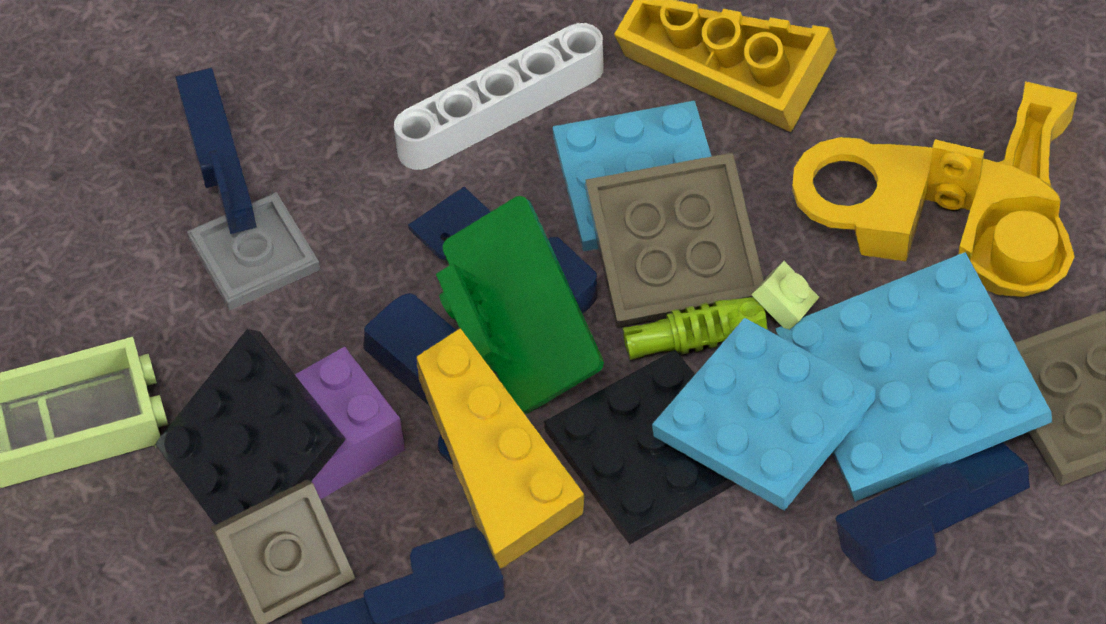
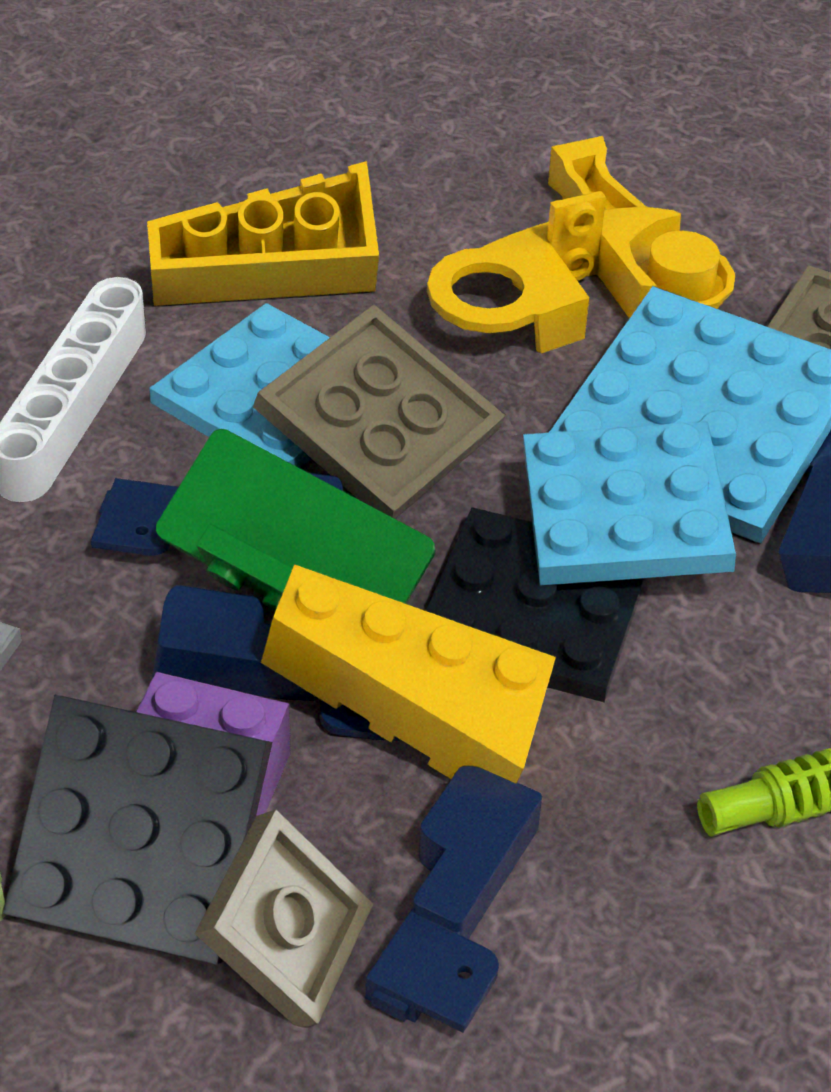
camera: 45 degrees left, 10 degrees down
(692, 327) = (470, 479): lime hinge -> none
(785, 295) = (527, 405): yellowish green plate -> none

